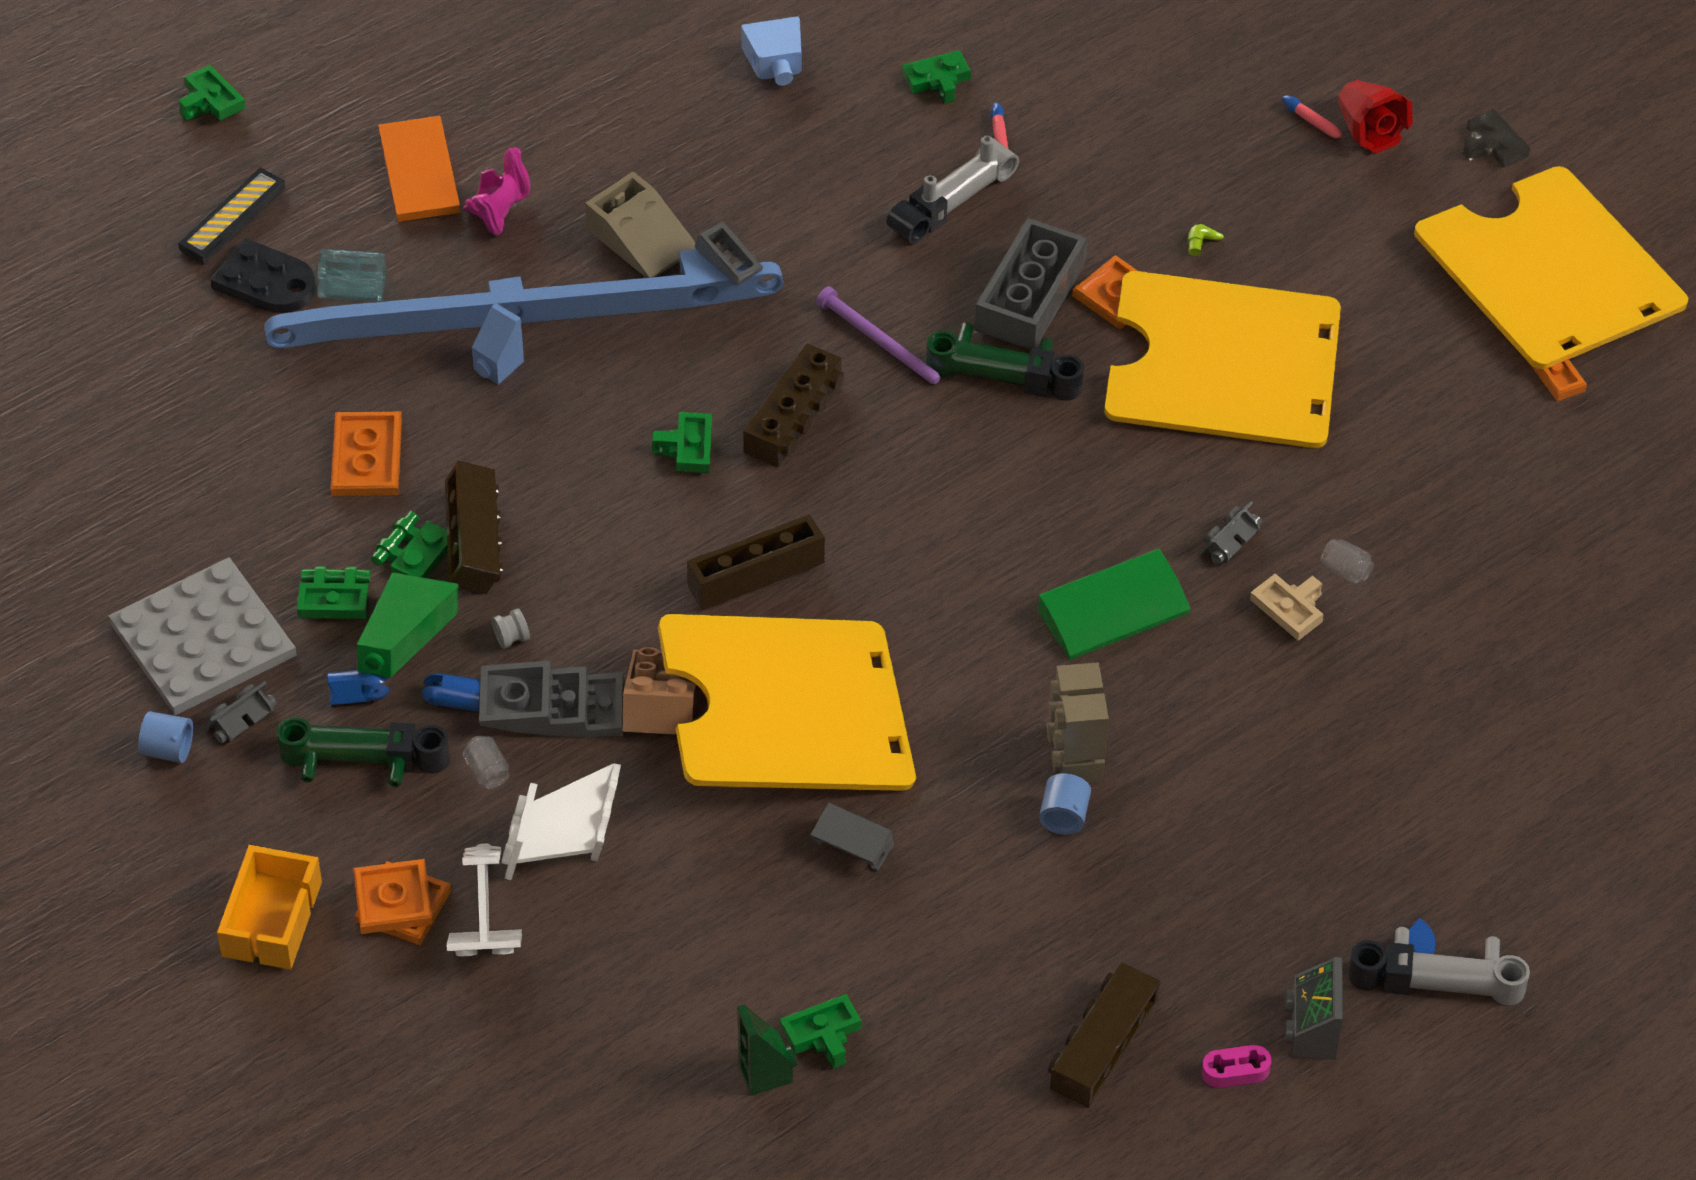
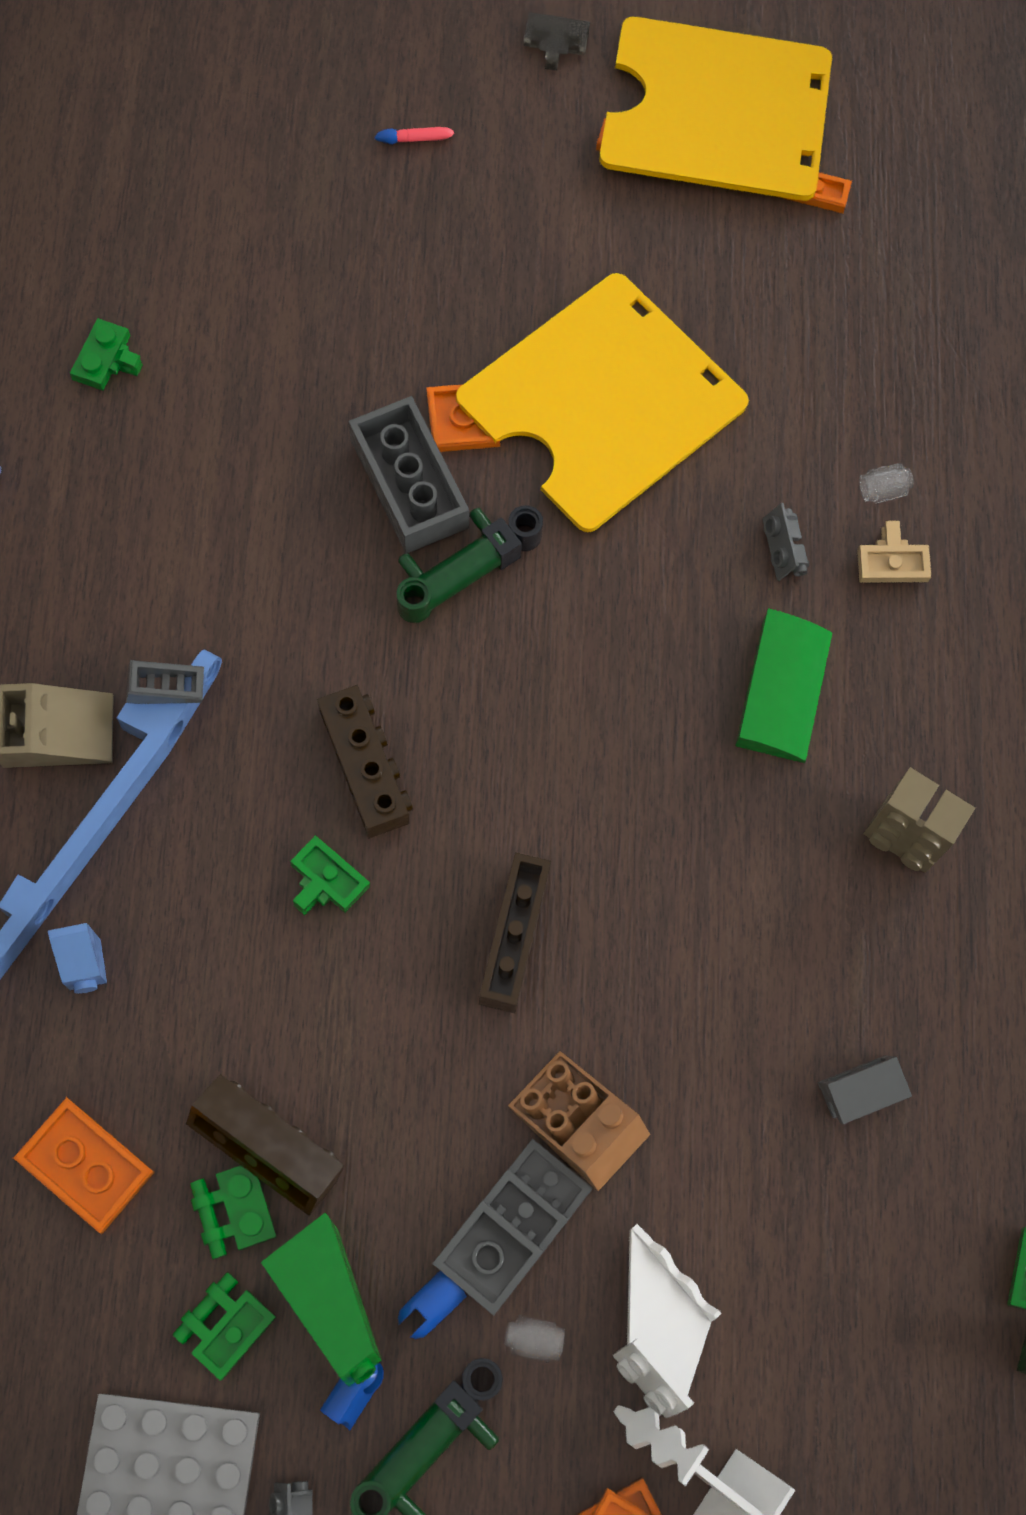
camera: 55 degrees left, 20 degrees up
(510, 628) = (404, 1199): light grey wheel -> none
(788, 703) = (693, 1029): yellow door -> none
(828, 299) = (344, 632): medium lavender bar -> none
(933, 201) = (247, 451): light grey piece -> none
(999, 129) = (192, 348): coral piece -> none
(1065, 804) = (964, 892): medium blue piece -> none
(1196, 236) = (461, 316): lime animal -> none
(1375, 114) = (460, 91): red cone -> none

